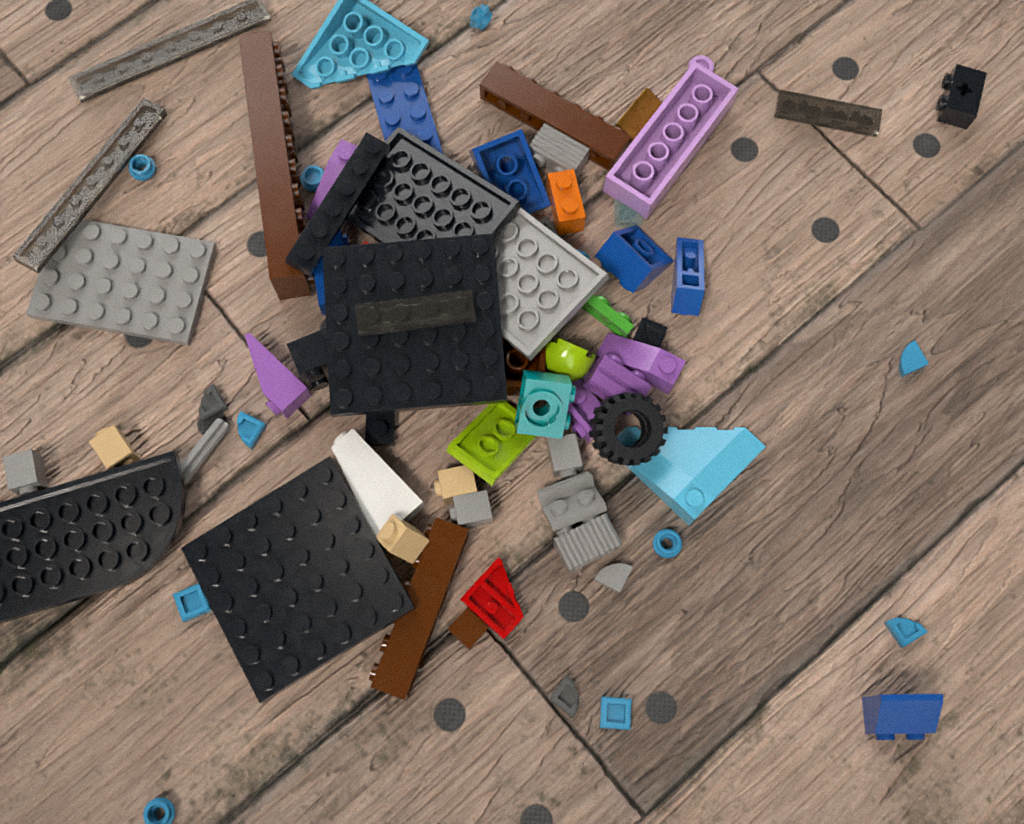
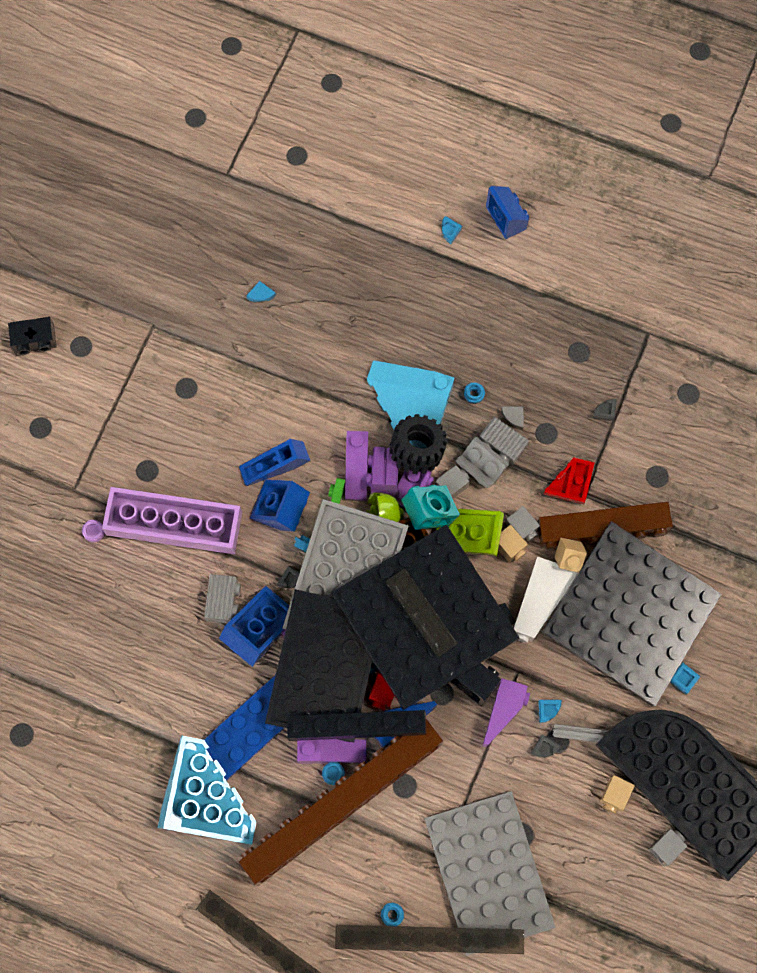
camera: 115 degrees left, 0 degrees up
(468, 628) = (599, 490): reddish brown tile -> none
(480, 17) = (129, 718): dark azure plate -> none
(536, 105) = (190, 621): reddish brown brick -> none
(565, 202) = (261, 573): orange brick -> none
(615, 713) = (599, 376): dark azure tile -> none
(625, 216) = (246, 529): clear light blue tile -> none
(639, 113) = (159, 555): pearl gold slope -> none
(650, 333) = (332, 469): black tile -> none
(828, 113) = (90, 422): clear smoke plate -> none

